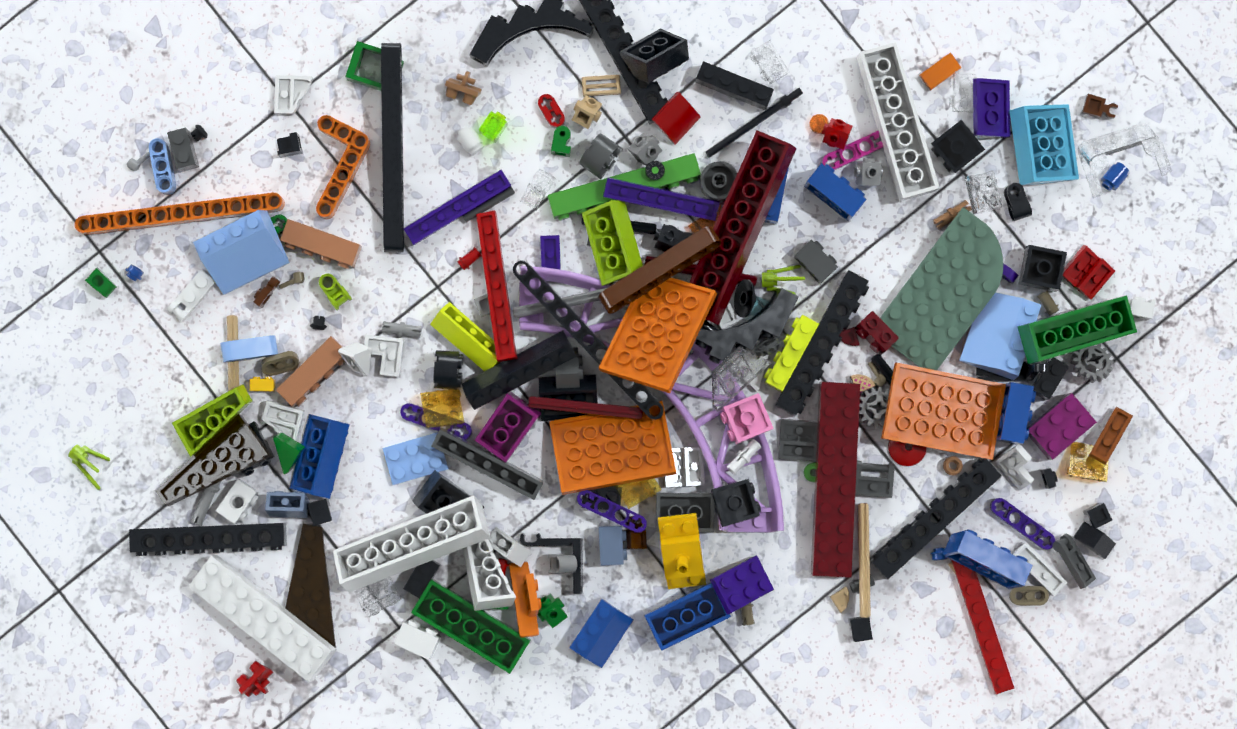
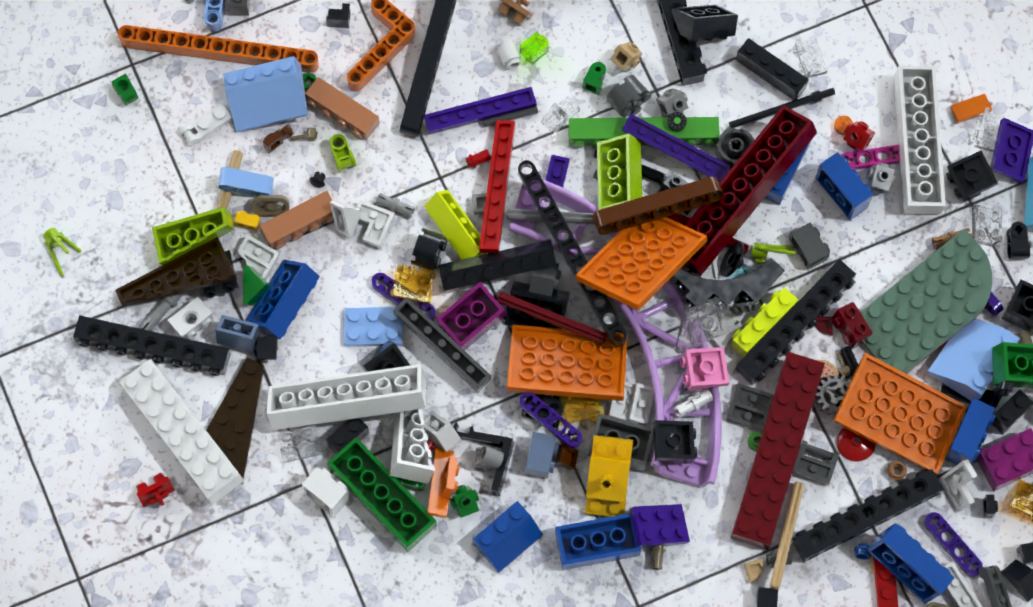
camera: 10 degrees right, 15 degrees down
(134, 272) = (158, 90): blue plate -> none
(547, 113) = (588, 50): red beam -> none
(605, 85) = (646, 40): tan tile -> none
(676, 118) = (709, 83): red slope -> none

